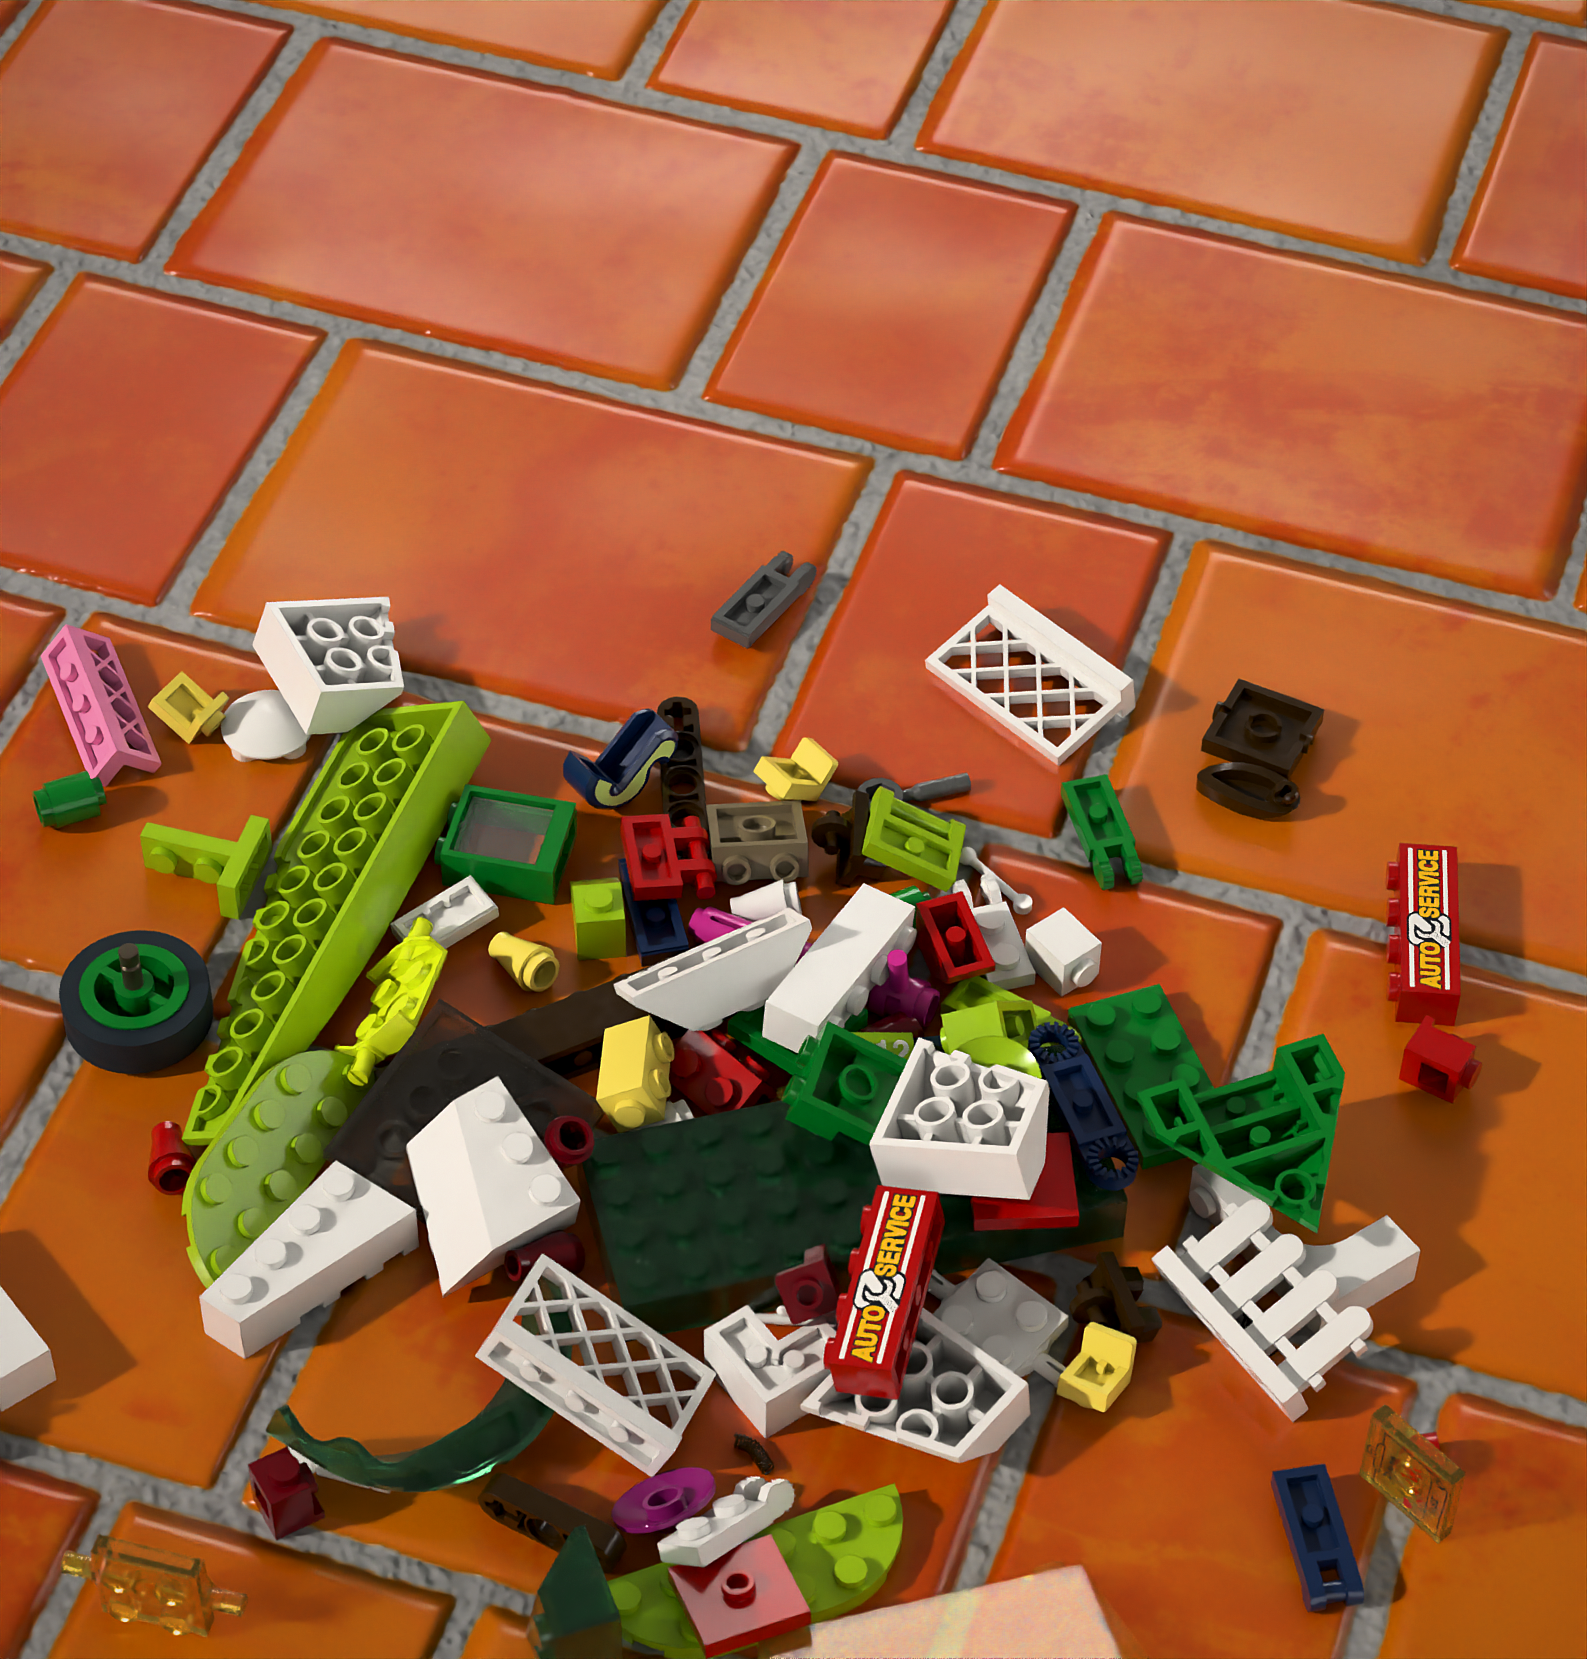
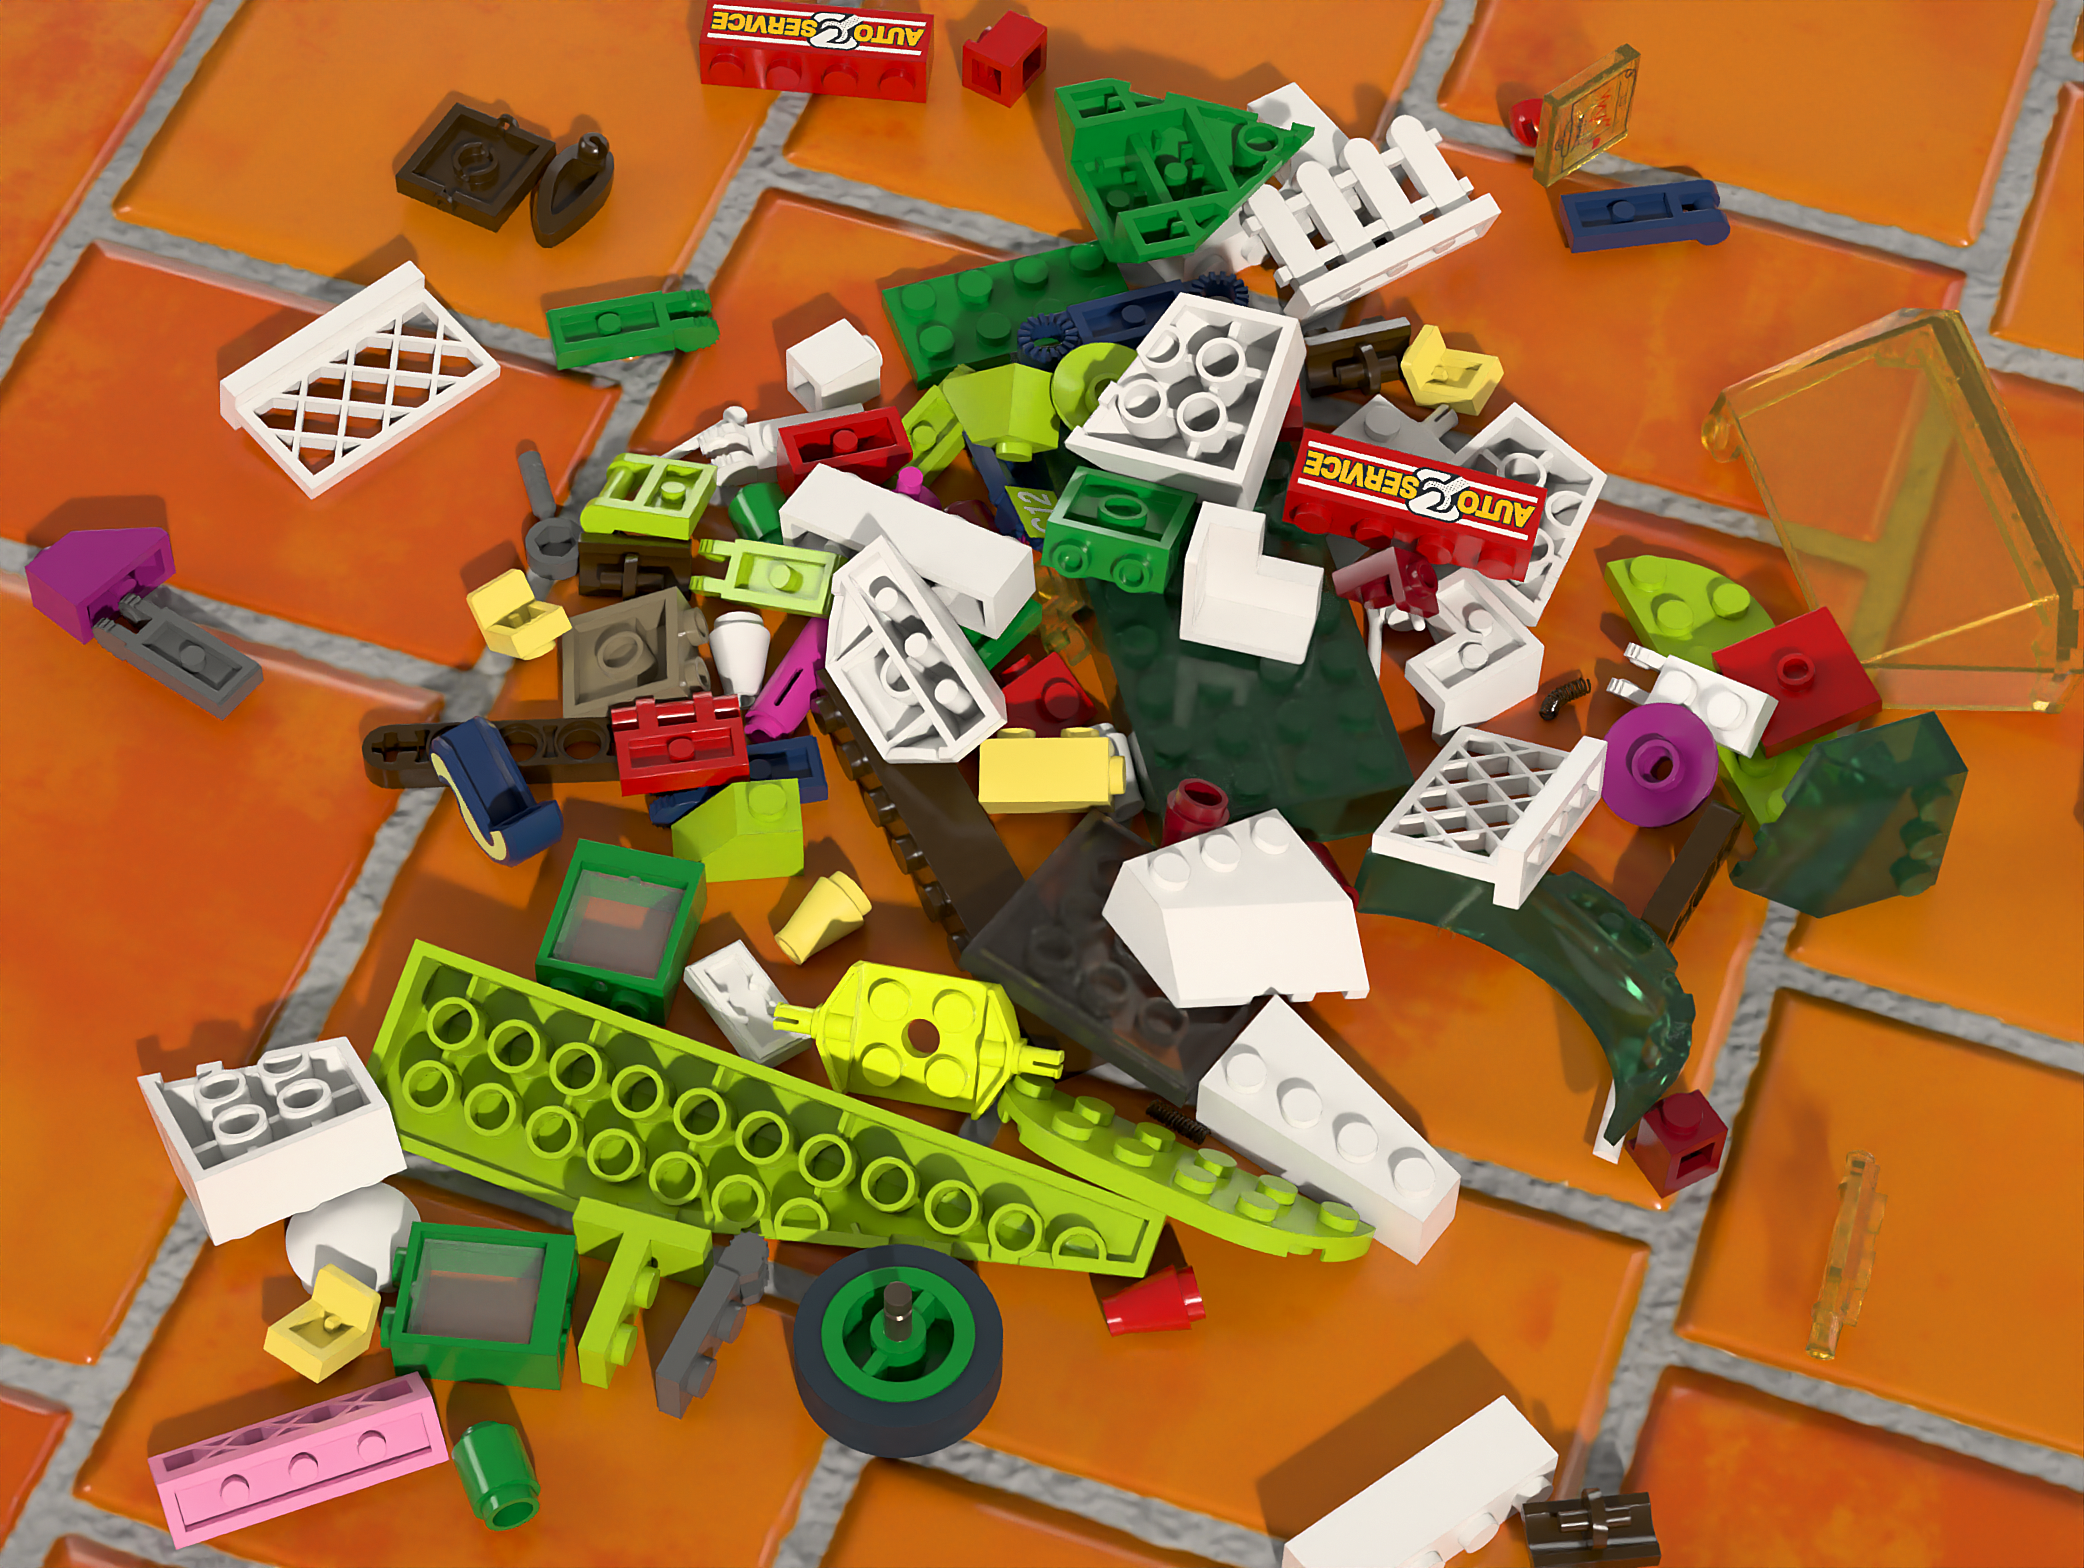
camera: 90 degrees left, 5 degrees up
(176, 905) = (713, 1318): none -> dark grey hinge
(201, 781) = (482, 1305): none -> window
(781, 1162) = (1243, 597): none -> white panel
(829, 543) = (93, 571): none -> magenta slope
(831, 898) = (771, 576): none -> lime hinge

